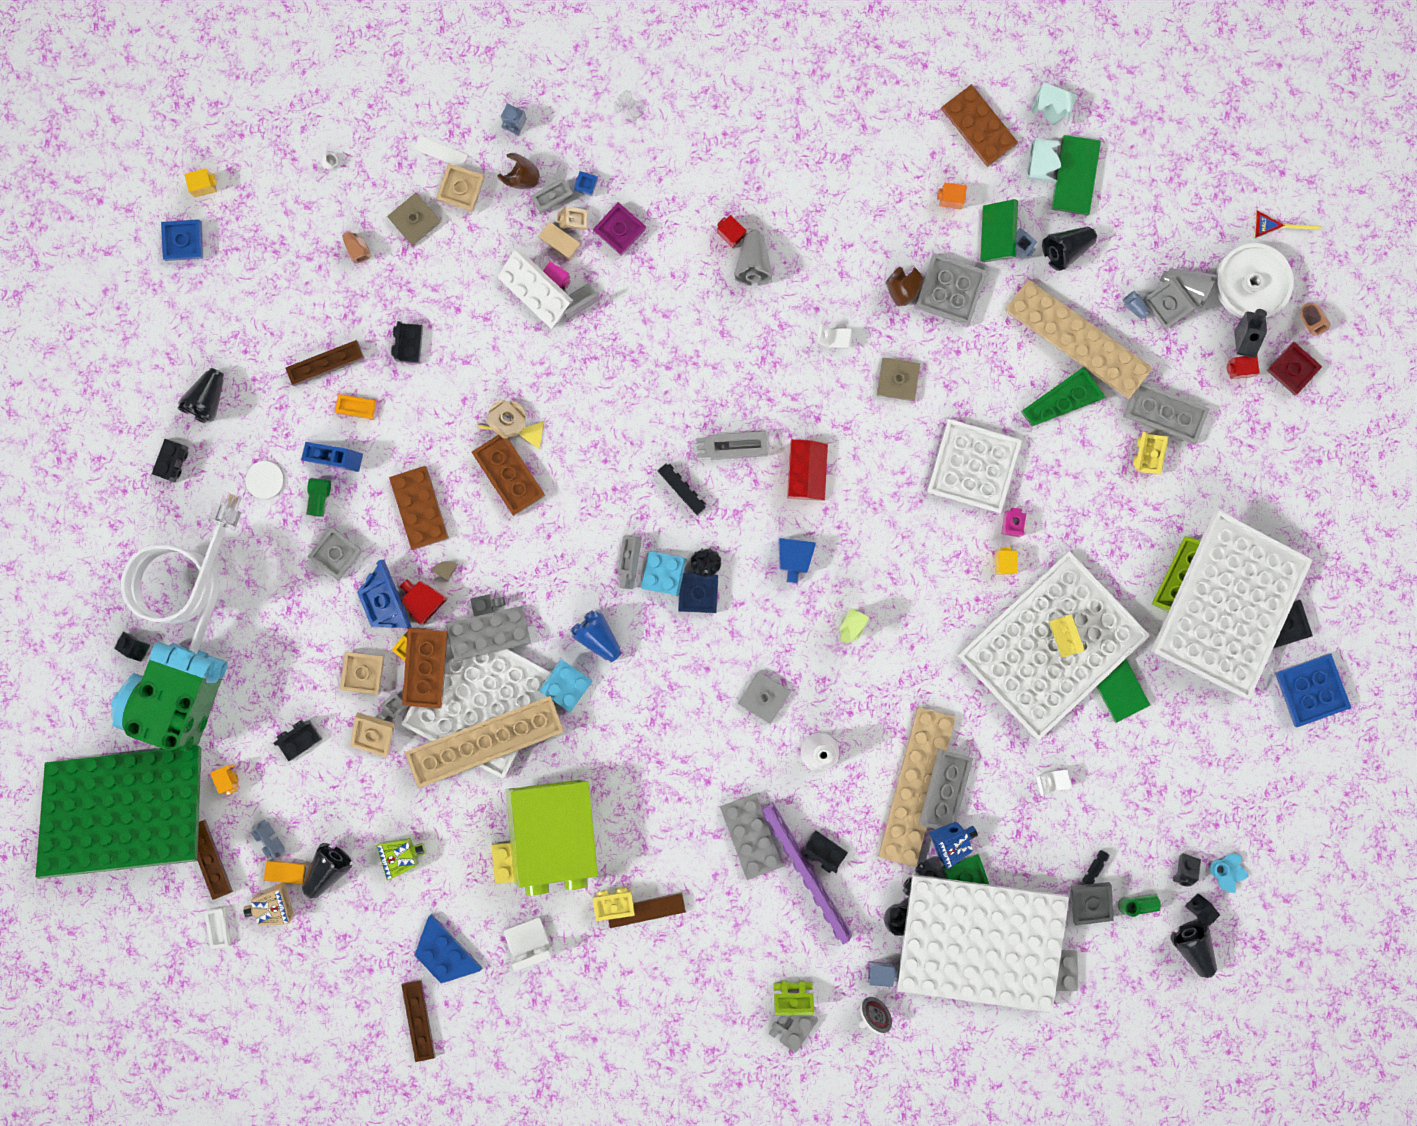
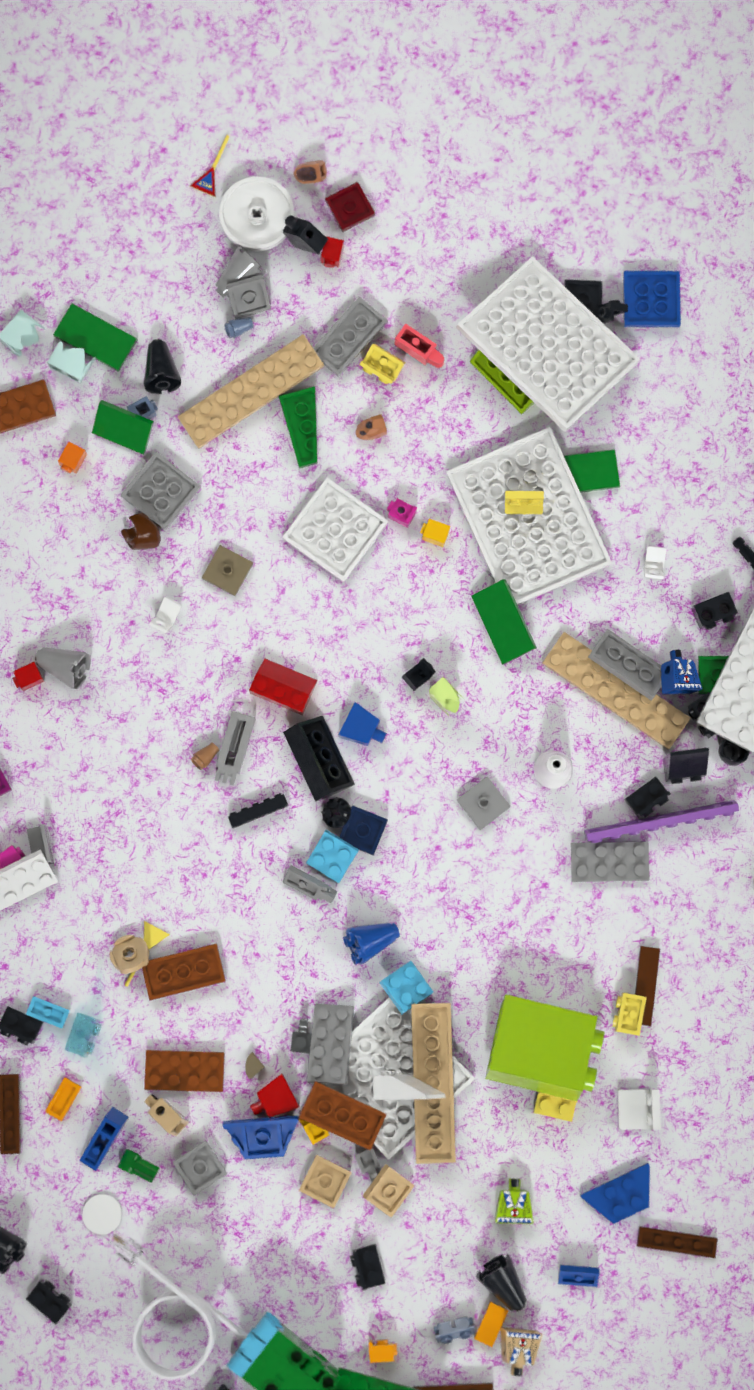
camera: 70 degrees left, 5 degrees down
(355, 939) = (578, 1275): none -> blue plate
(371, 505) = (171, 1120): none -> tan torso
(418, 403) = (83, 1034): none -> clear light blue bracket
(428, 363) = (47, 1012): none -> medium azure plate
(467, 716) = (395, 1086): none -> white slope
(715, 421) = (204, 756): none -> medium nougat cone
(751, 527) = (318, 758): none -> black slope
(864, 594) = (419, 674): none -> black bracket
(867, 878) = (686, 765): none -> black slope
(944, 656) = (503, 621): none -> green tile
(1030, 852) = (712, 607): none -> black brick
(1084, 465) = (371, 428): none -> nougat rock
(1181, 482) = (419, 347): none -> coral hinge
(1286, 652) = (608, 310): none -> black bracket

